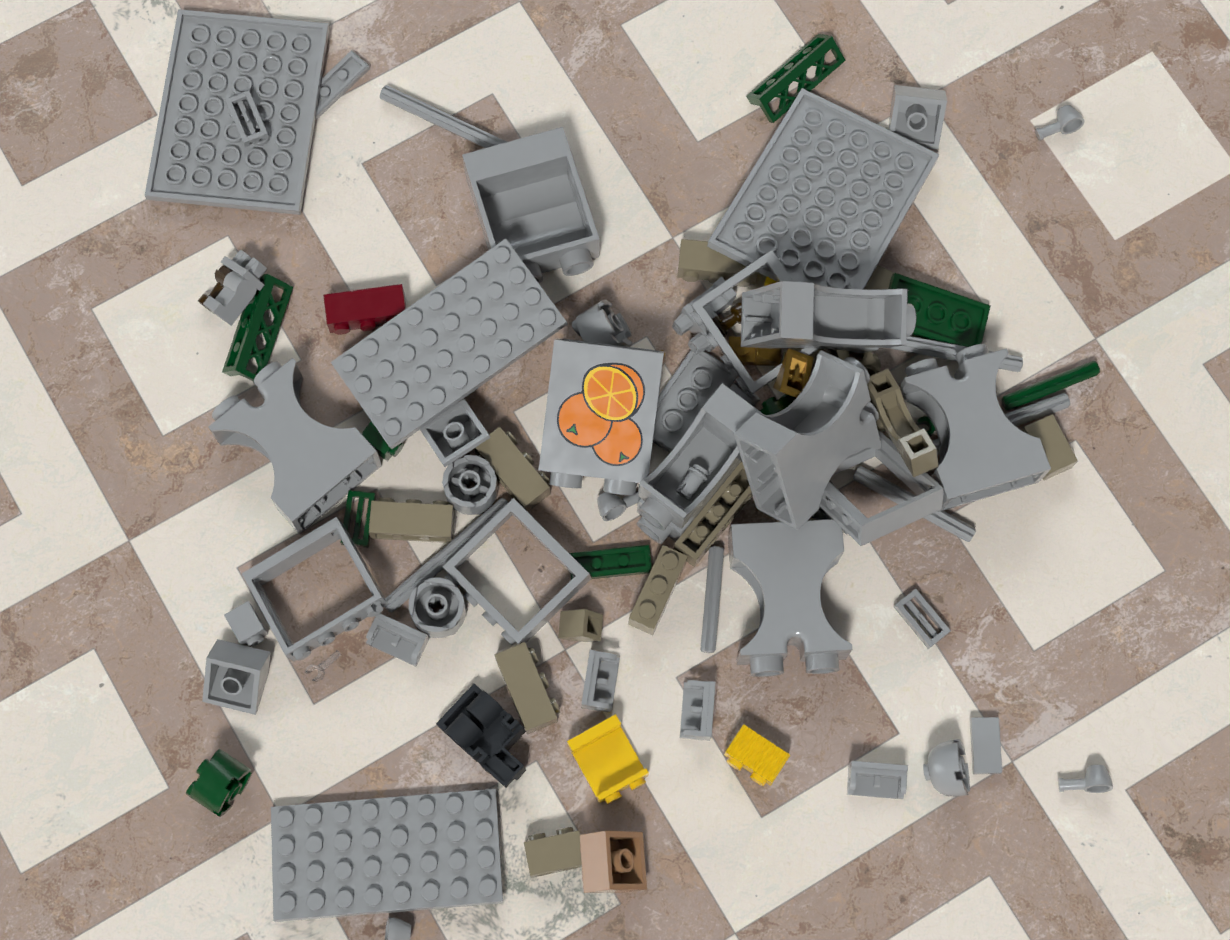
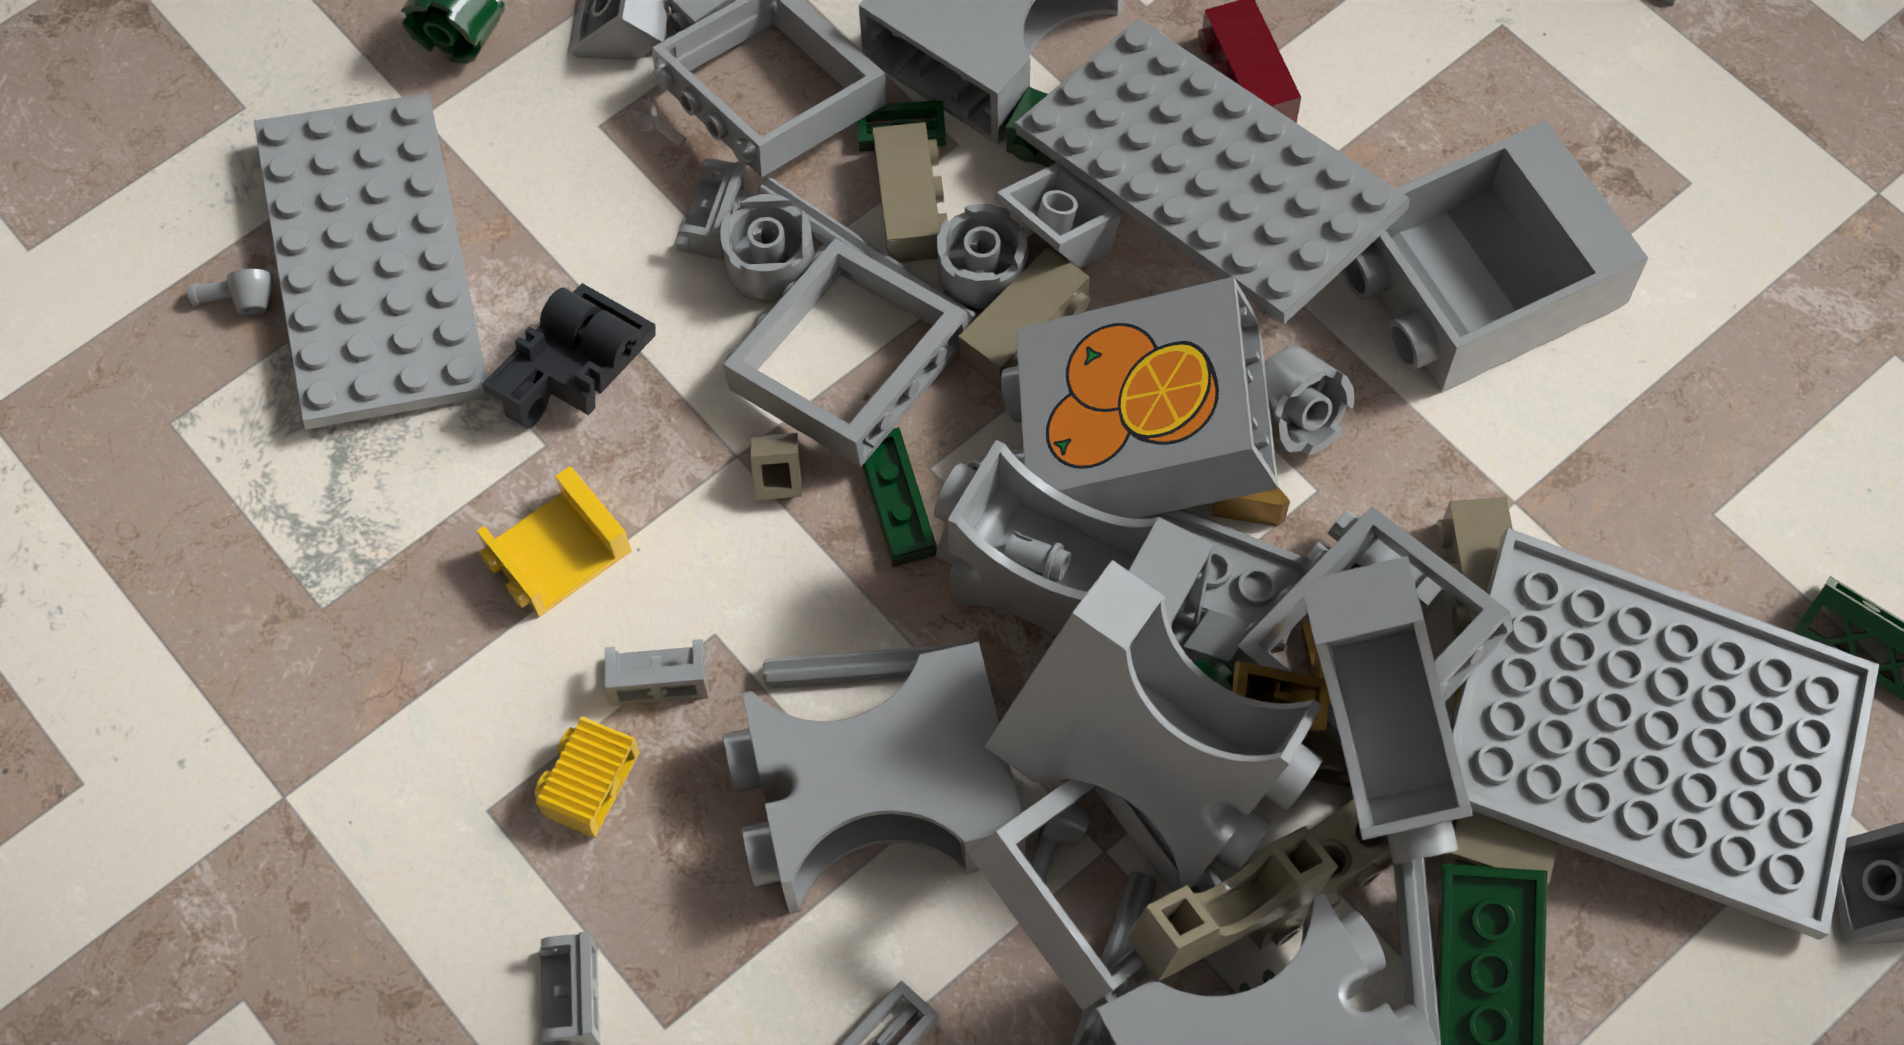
camera: 85 degrees right, 10 degrees down
(439, 118) = (1617, 106): light grey axle -> none
(527, 687) = (658, 401): dark tan brick -> none
(553, 853) = (389, 488): dark tan brick -> none
(600, 681) = (684, 508): light grey hinge -> none
(613, 862) = (372, 565): medium nougat brick -> none
(657, 590) = (855, 569): dark tan brick -> none
(715, 516) = (962, 615): dark tan brick -> none

